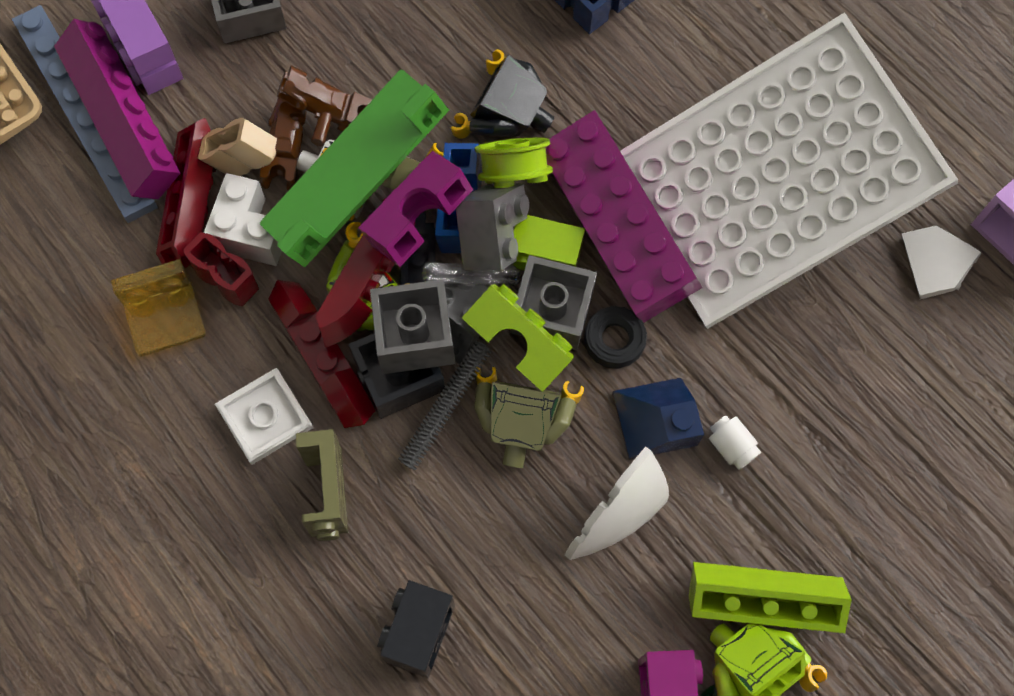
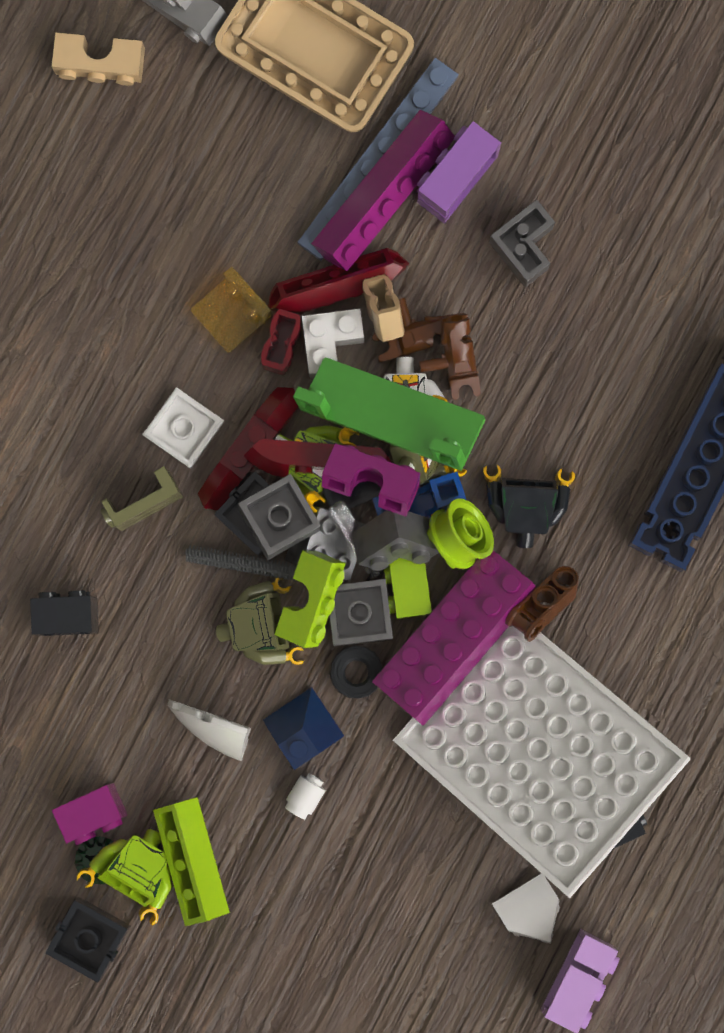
camera: 75 degrees right, 15 degrees up
(619, 117) = (531, 616): none -> reddish brown piece

